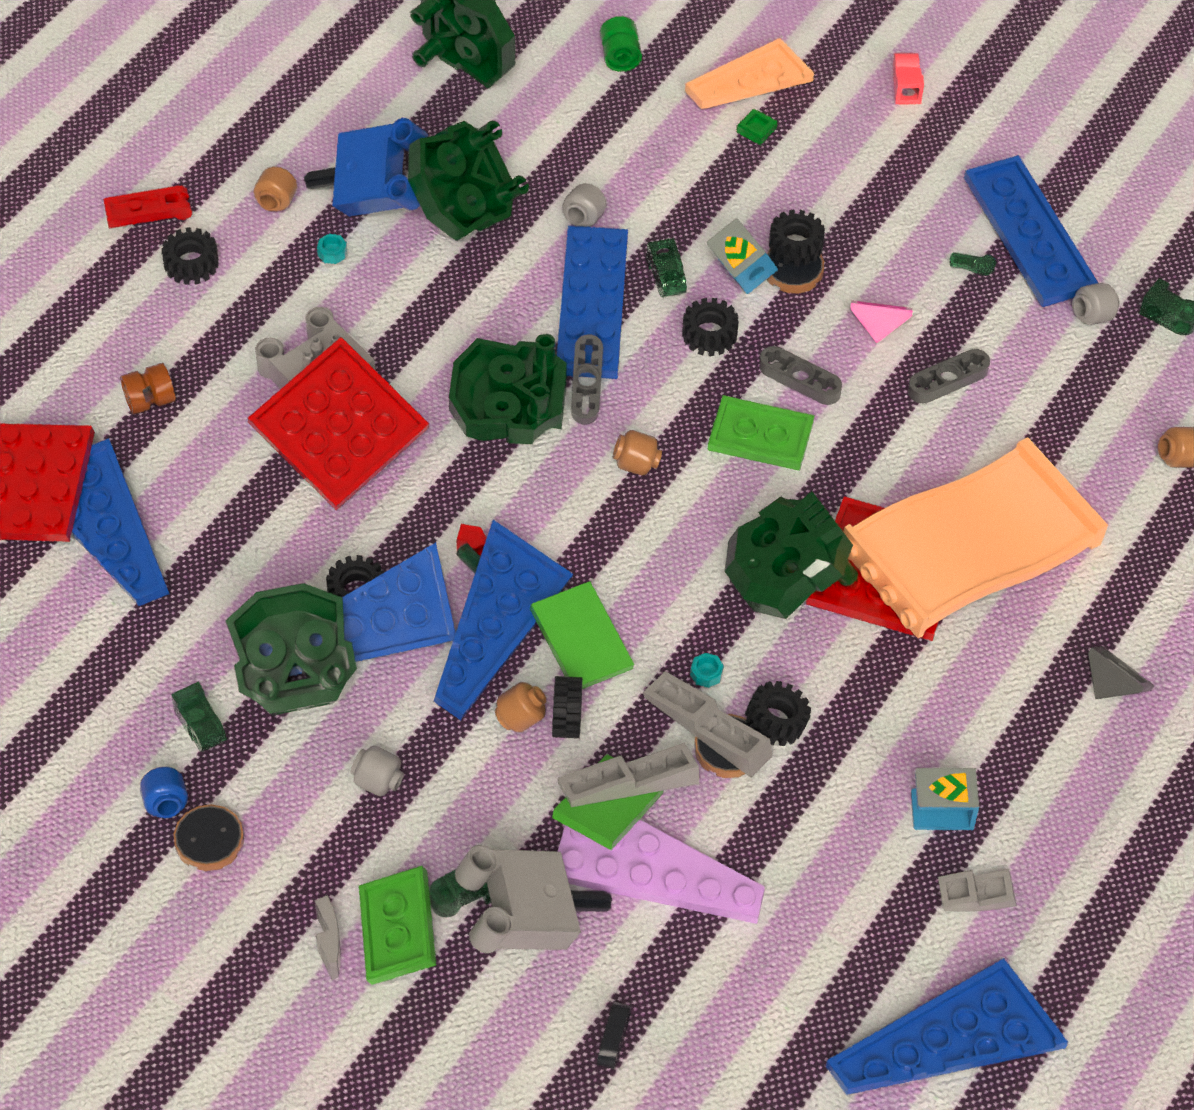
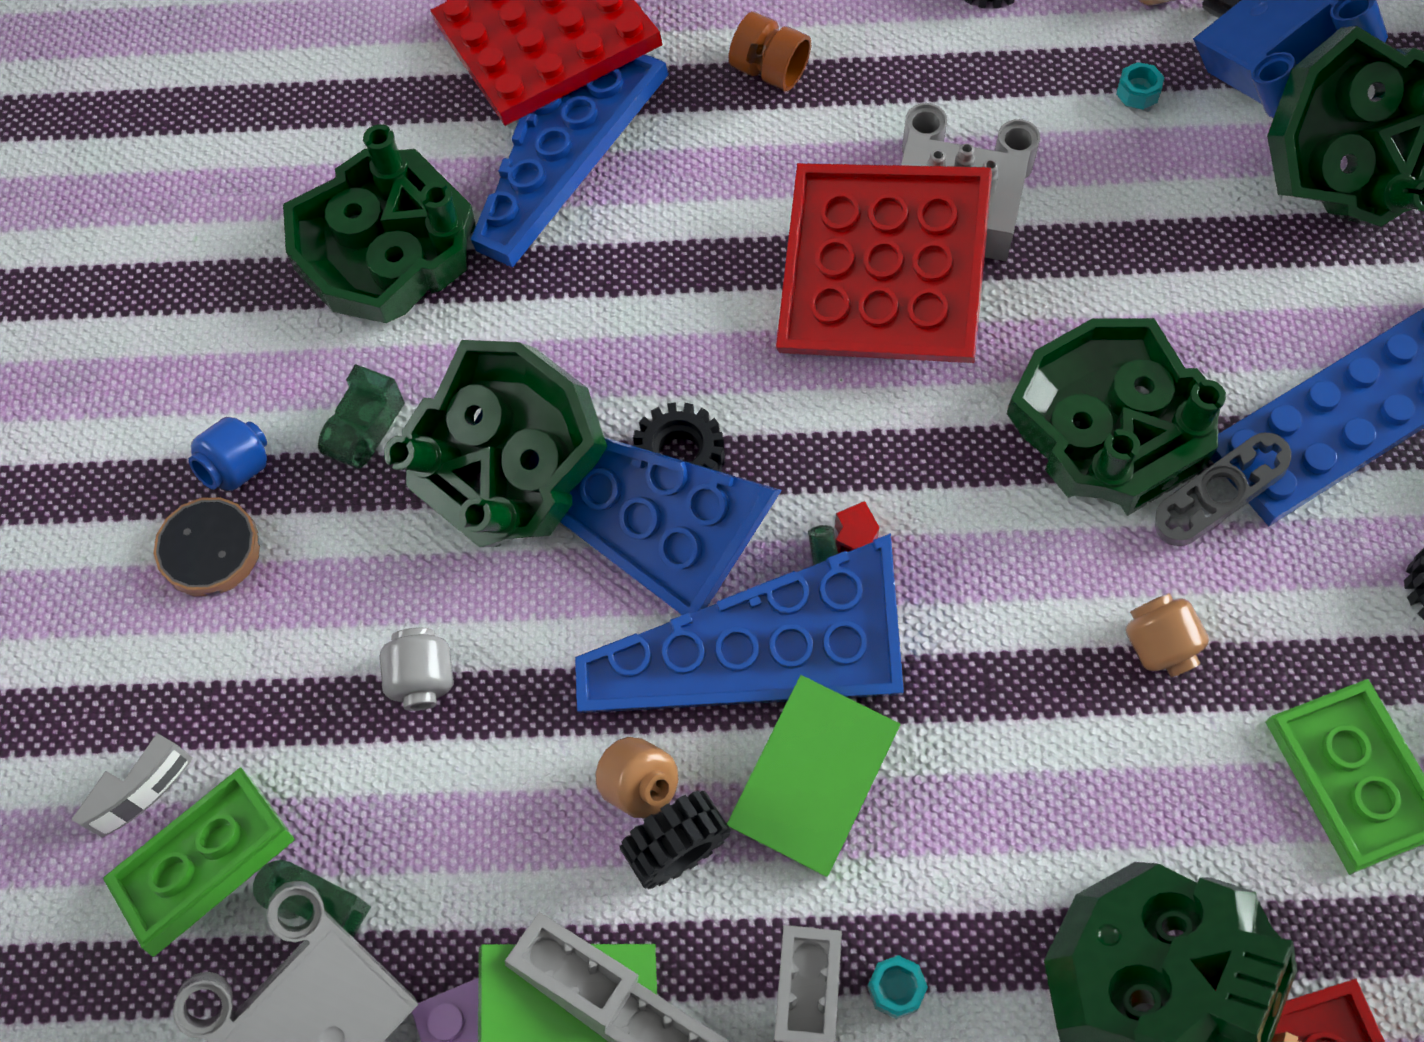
camera: 60 degrees right, 10 degrees up
(85, 622) = (403, 213): none -> dark green brick

